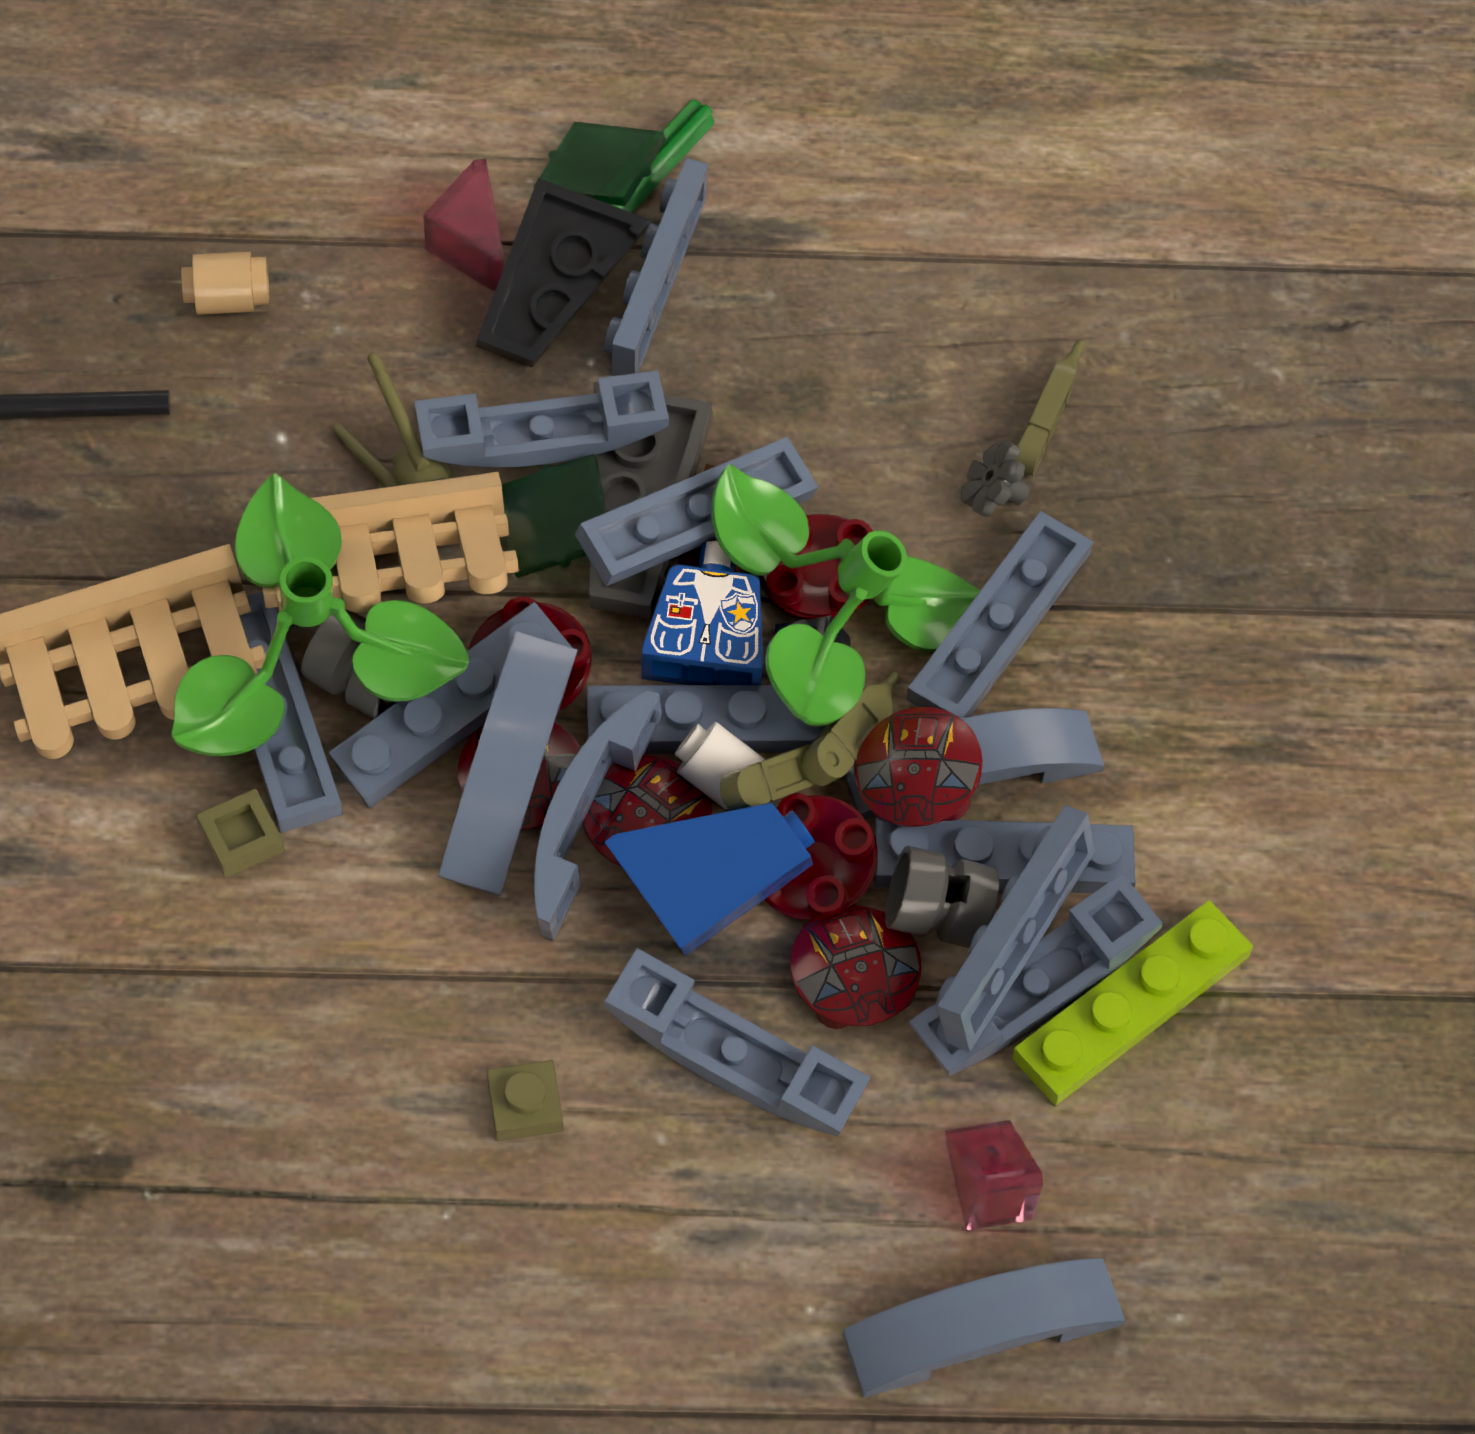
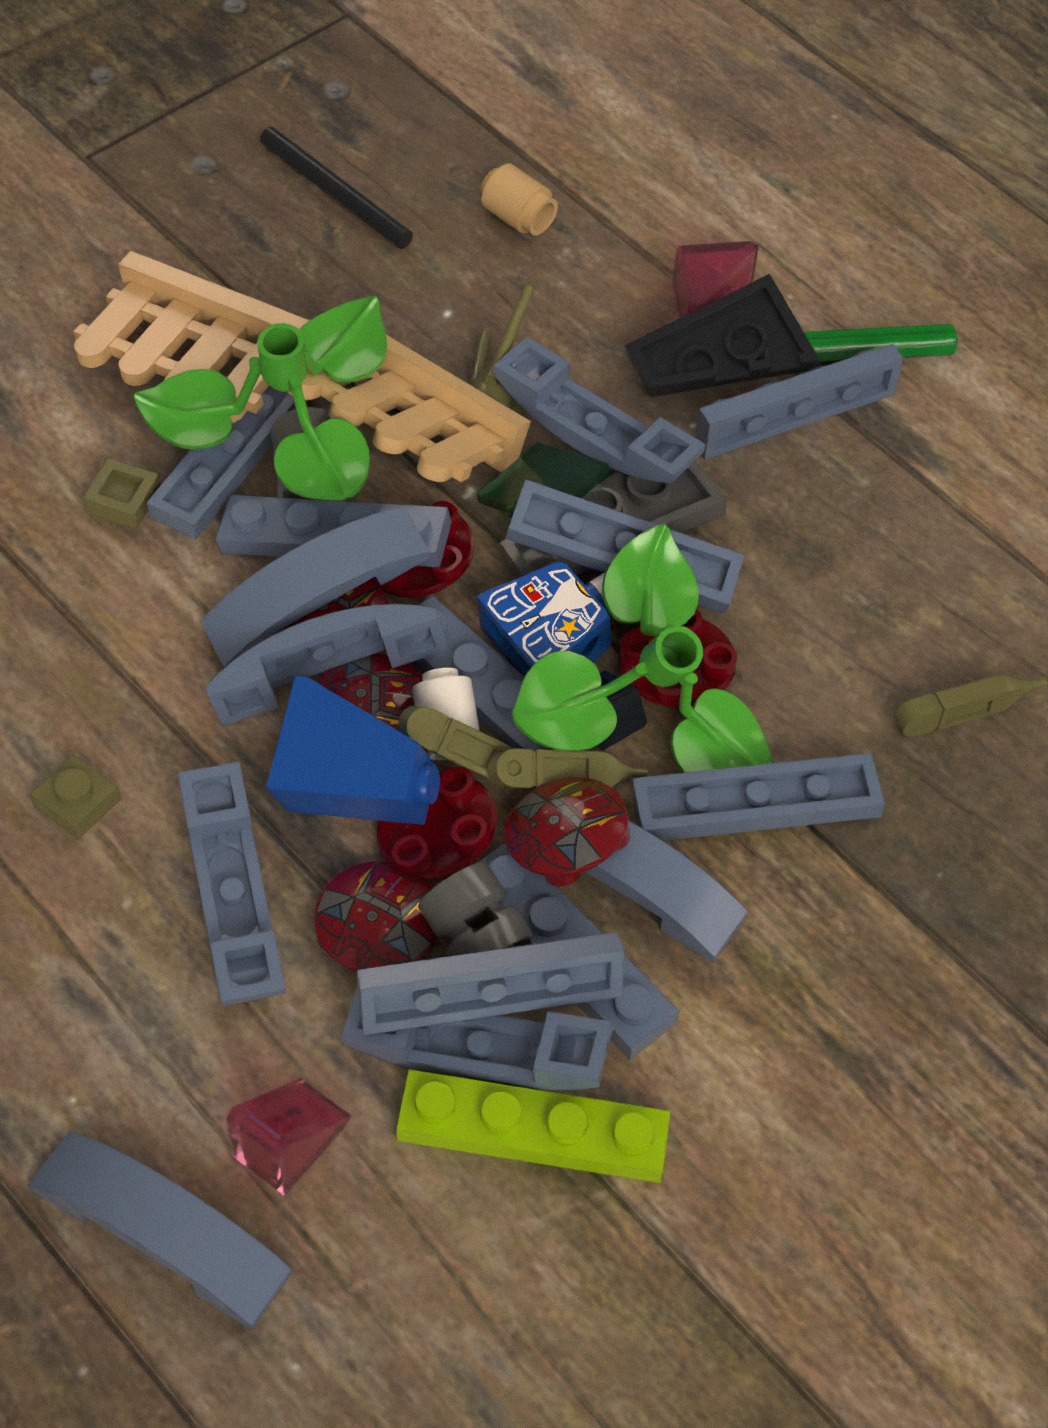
camera: 50 degrees right, 5 degrees down
(603, 160) = (842, 314): clear green piece -> none
(995, 479) = (867, 711): dark grey plant -> none

